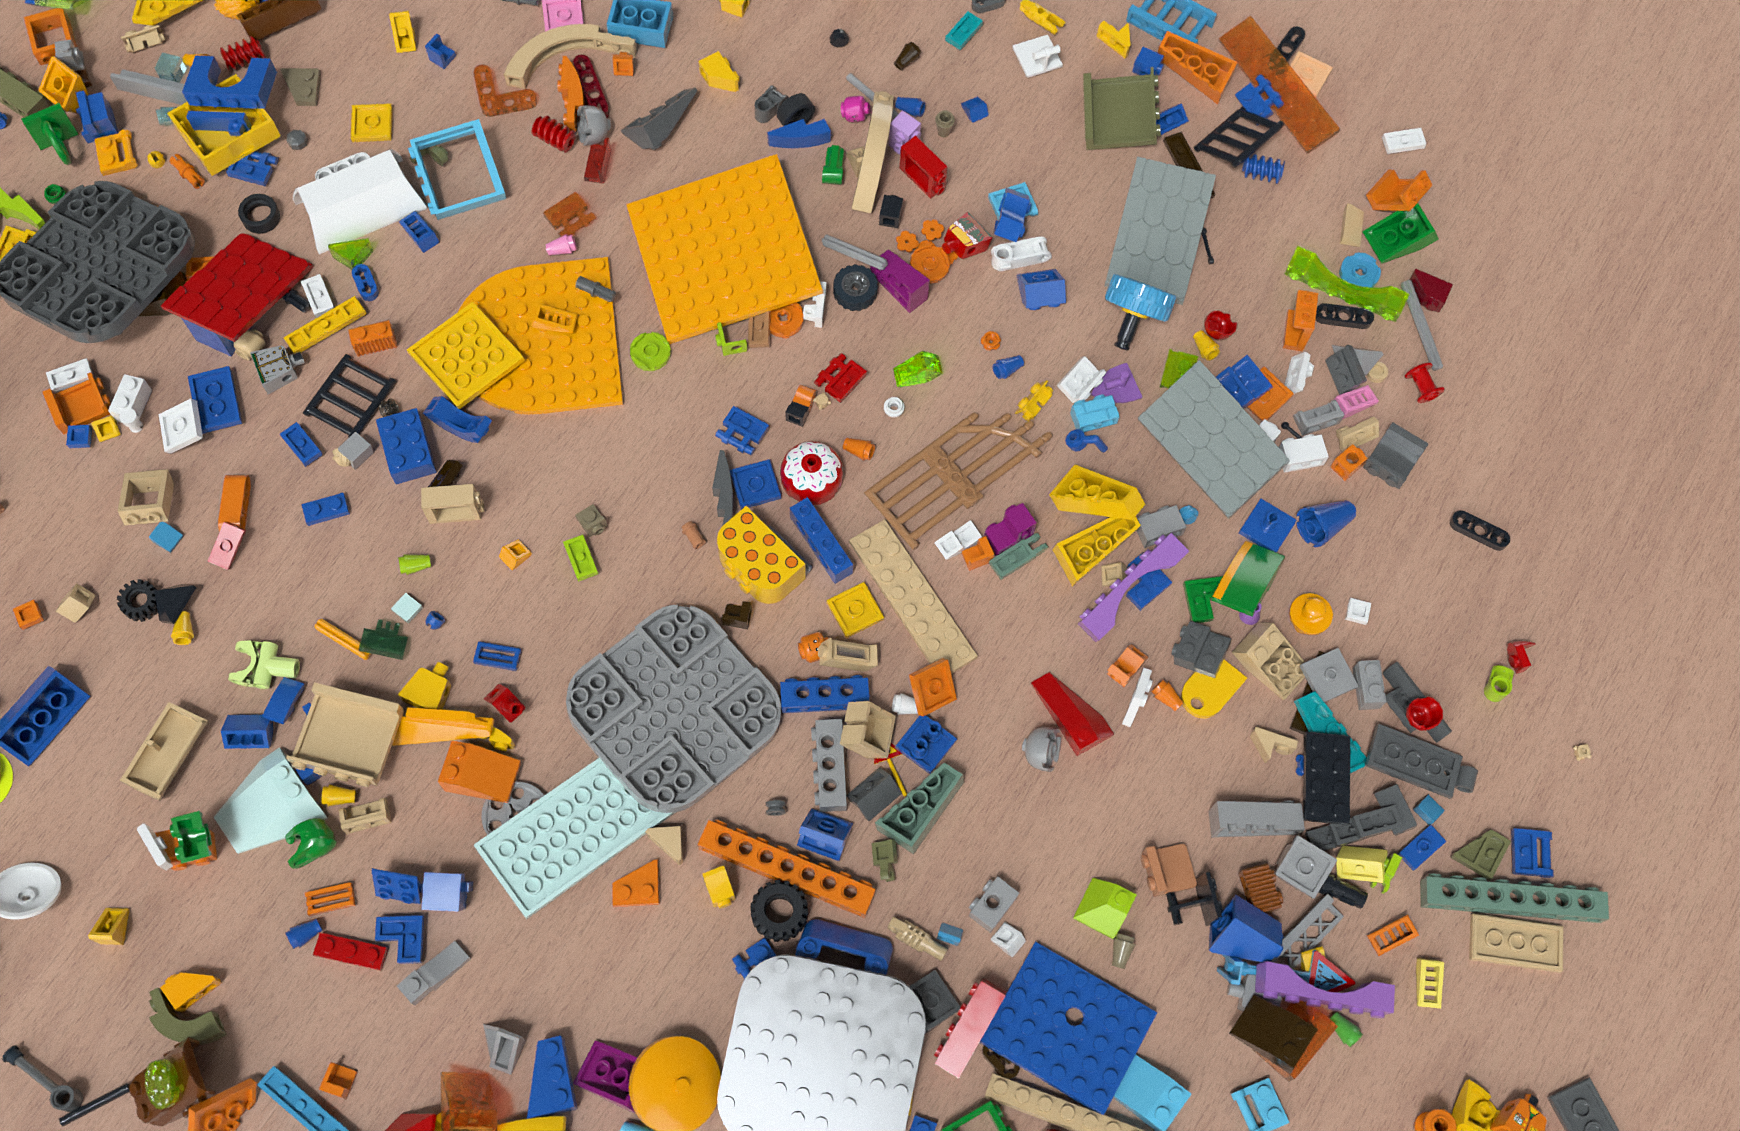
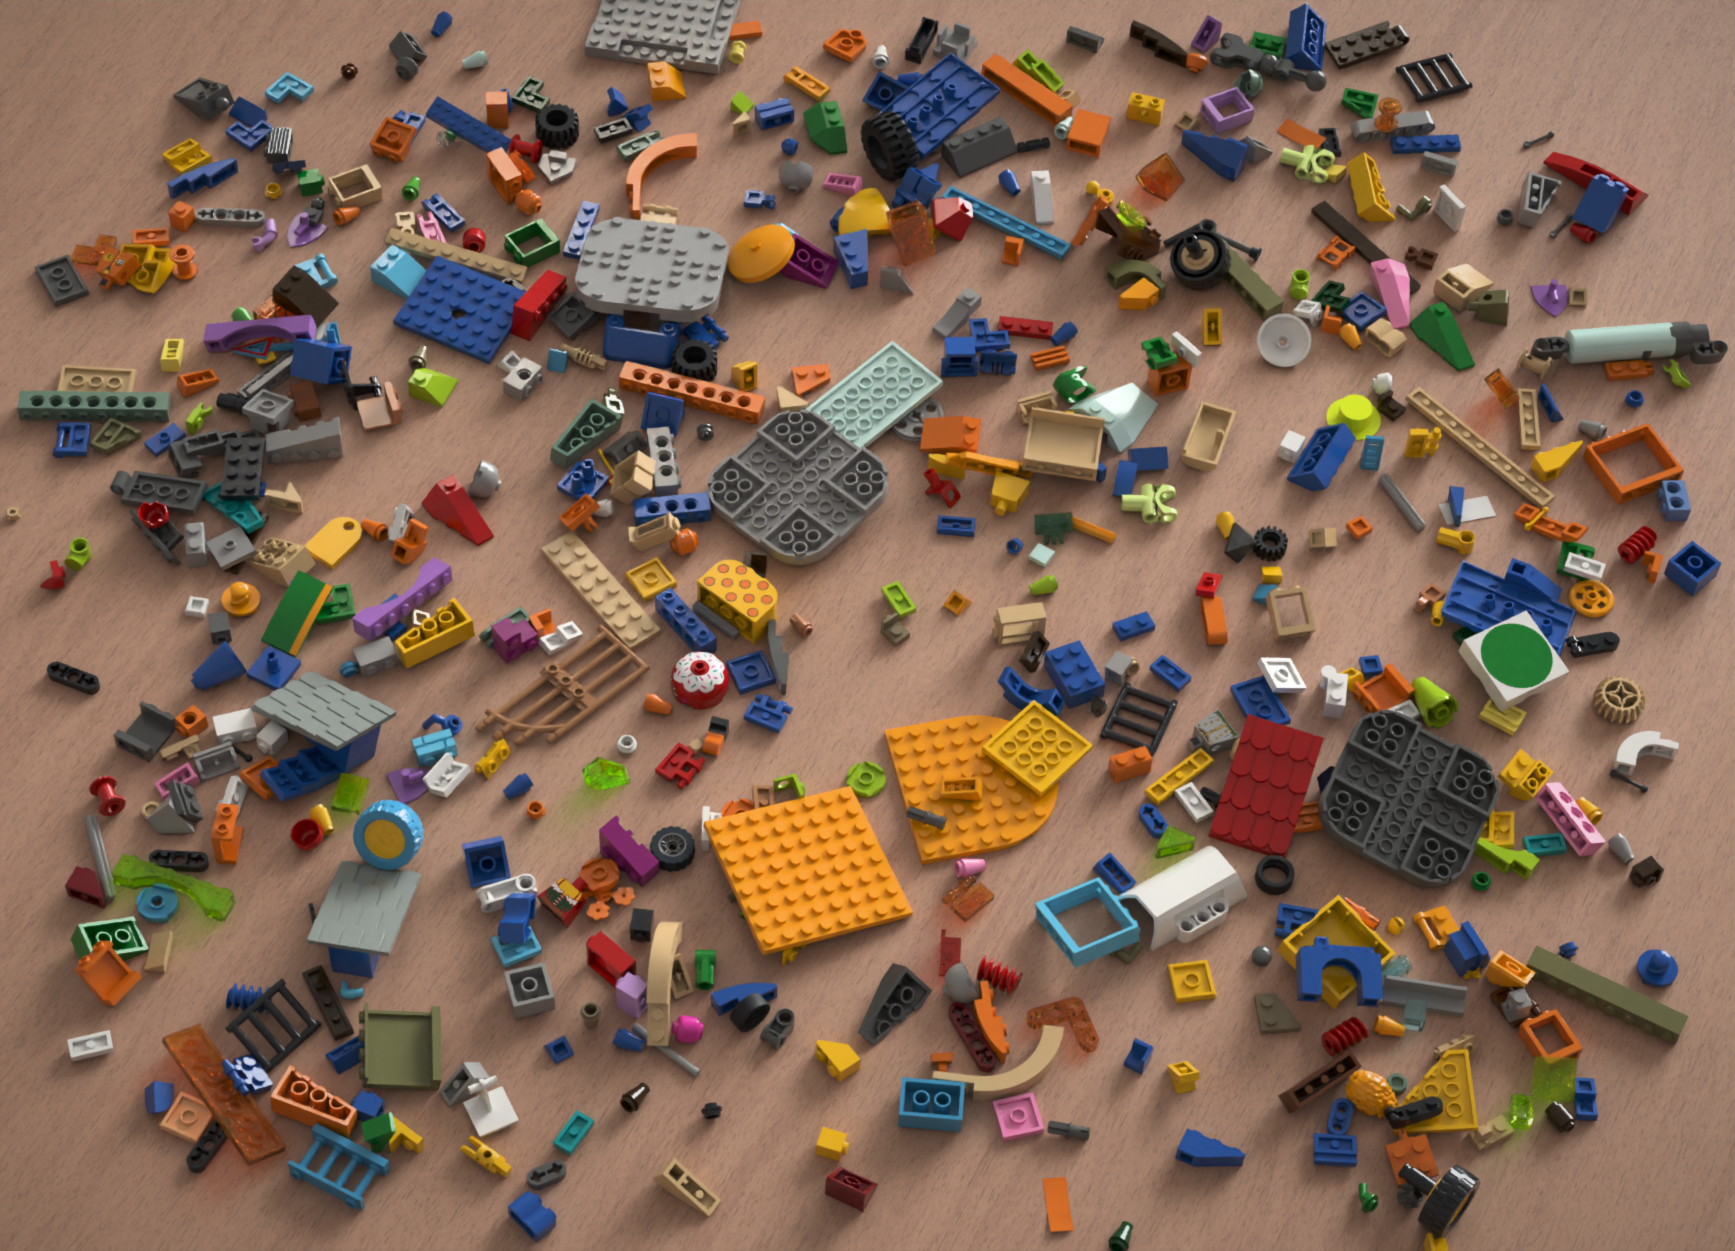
camera: 175 degrees right, 15 degrees down
(27, 381) = (1434, 703): none -> lime cone
(45, 1011) = (1252, 288): none -> olive brick
(51, 128) = (1503, 931): green tile -> none
(69, 732) = (1291, 446): none -> white brick
(90, 1028) = (1200, 259): none -> black wheel
(150, 562) = (1271, 574): none -> yellow slope
(209, 16) = (1398, 1083): none -> sand green tile
(854, 252) = (676, 873): light grey axle -> none
(1001, 151) = (529, 990): none -> light grey brick
(1060, 78) = (456, 1089): none -> light grey slope
(1096, 494) = (434, 660): yellow wedge -> none
(1139, 29) = (378, 1131): none -> green slope
(1200, 649) = (343, 561): dark grey plate -> none
(1331, 575) = (219, 627): none -> dark grey brick
(1335, 89) = (158, 1096): none -> blue brick
(1361, 864) = (217, 418): light yellow panel -> none
(1429, 810) = (155, 463): dark azure slope -> none

